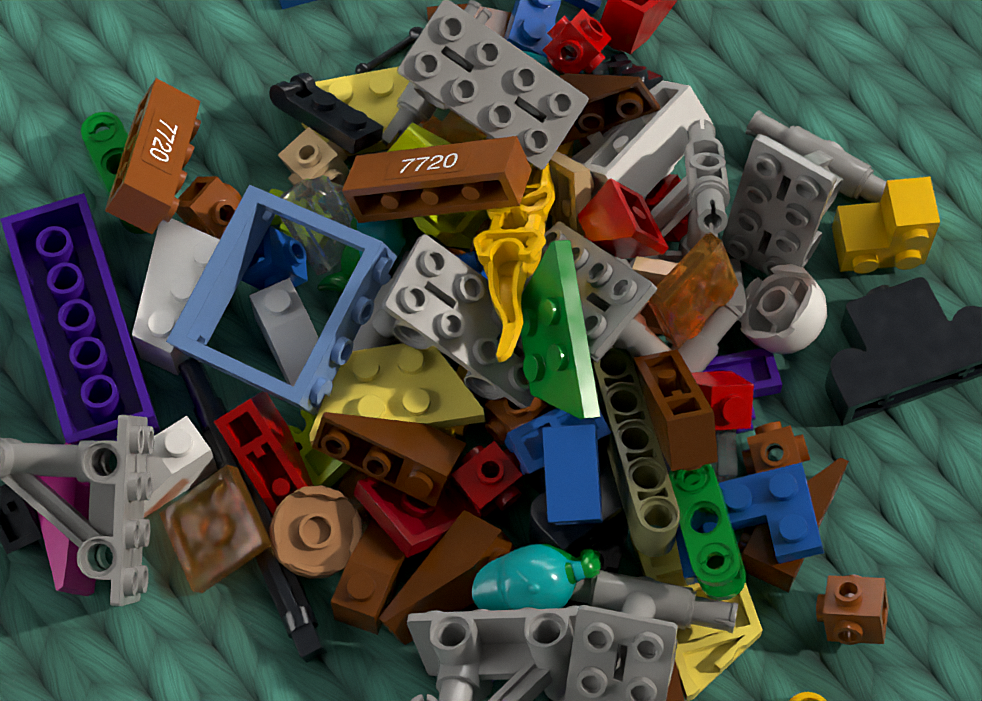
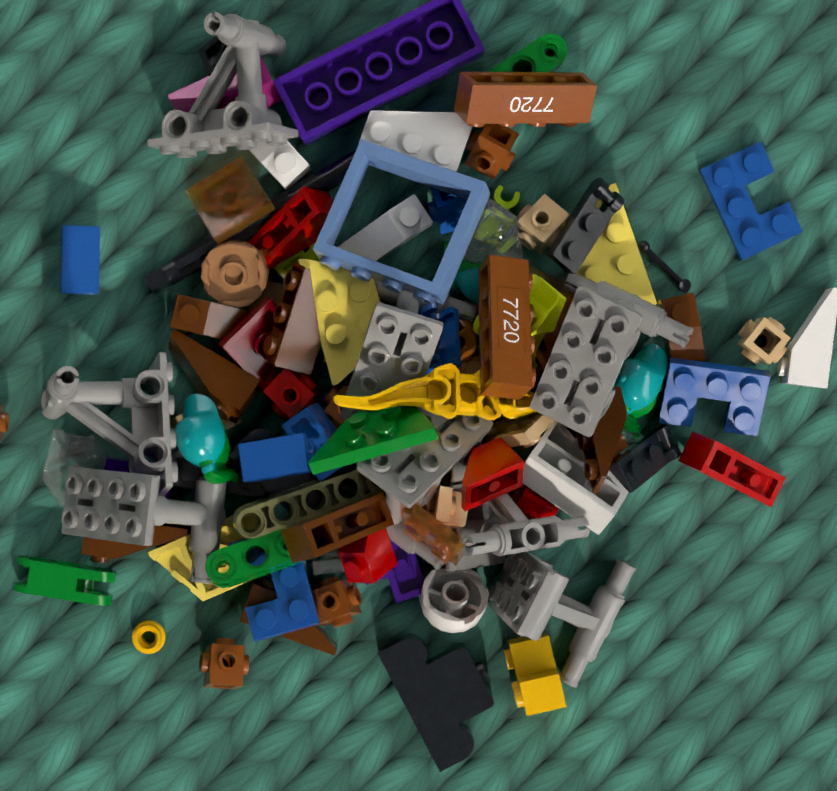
camera: 85 degrees right, 25 degrees up
(576, 44) = (666, 419): red brick -> none

